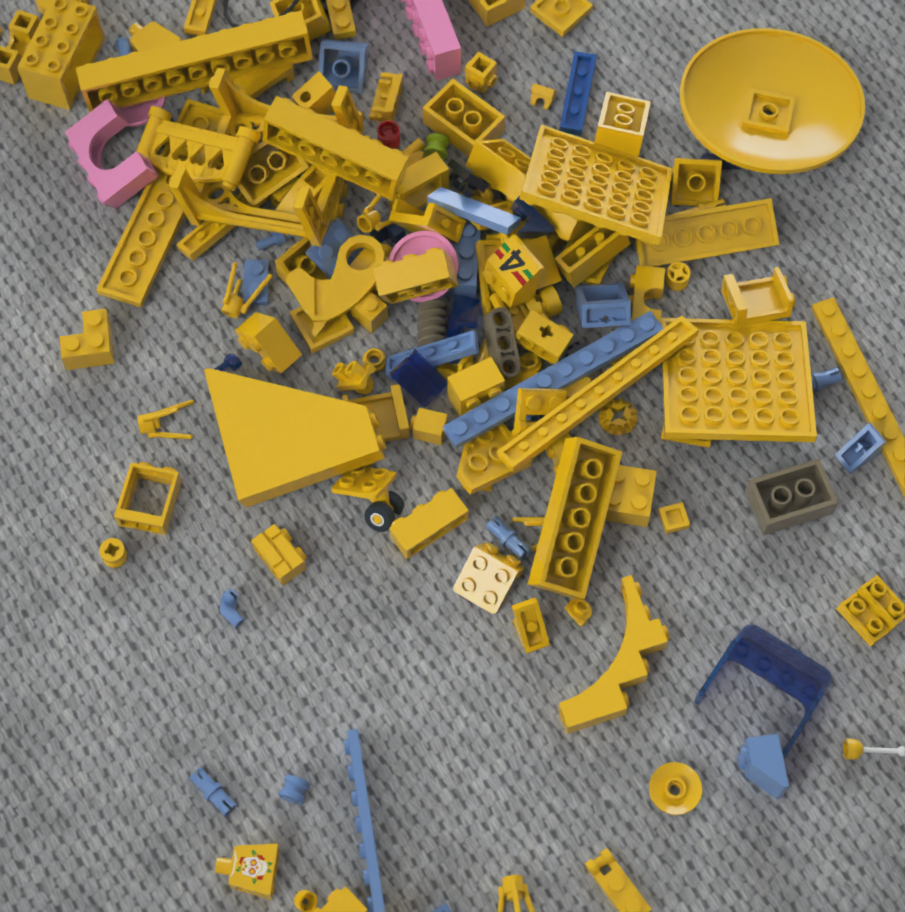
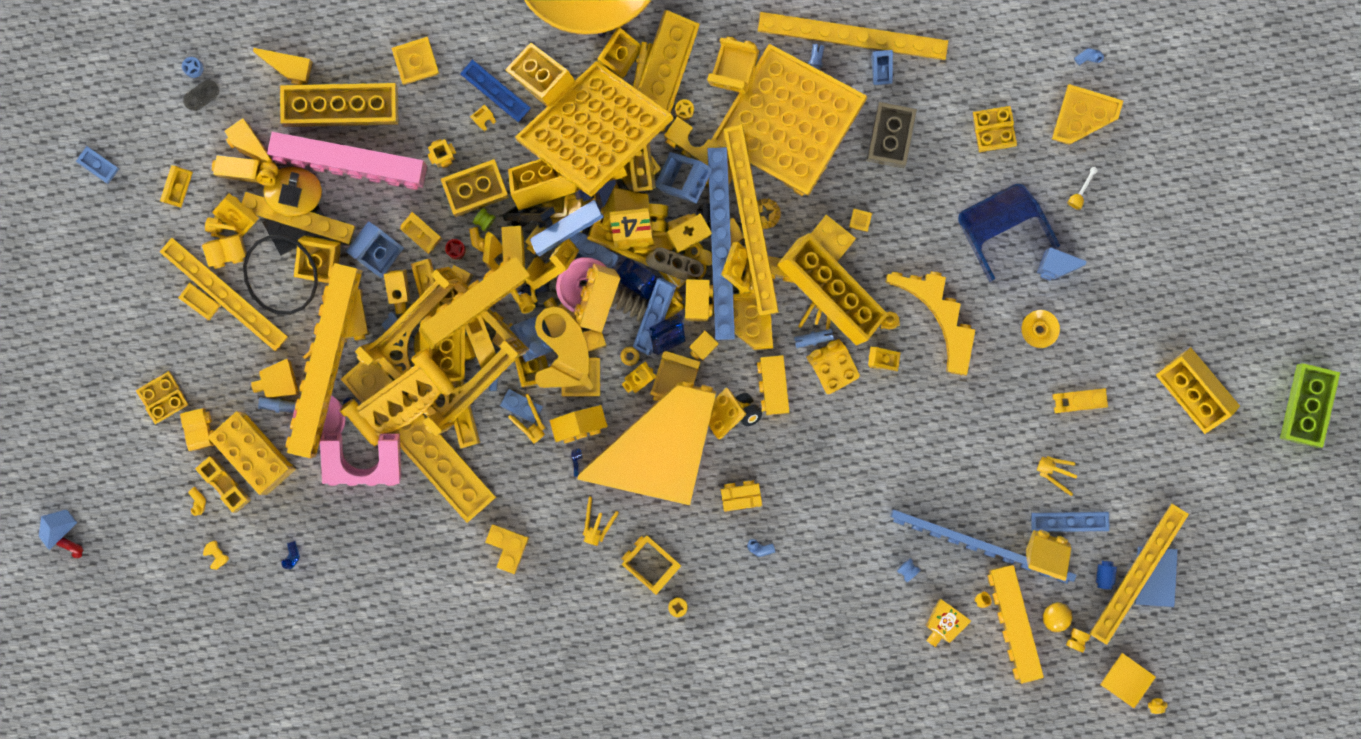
camera: 60 degrees left, 20 degrees up
(213, 791) = (880, 622): medium blue pin -> none

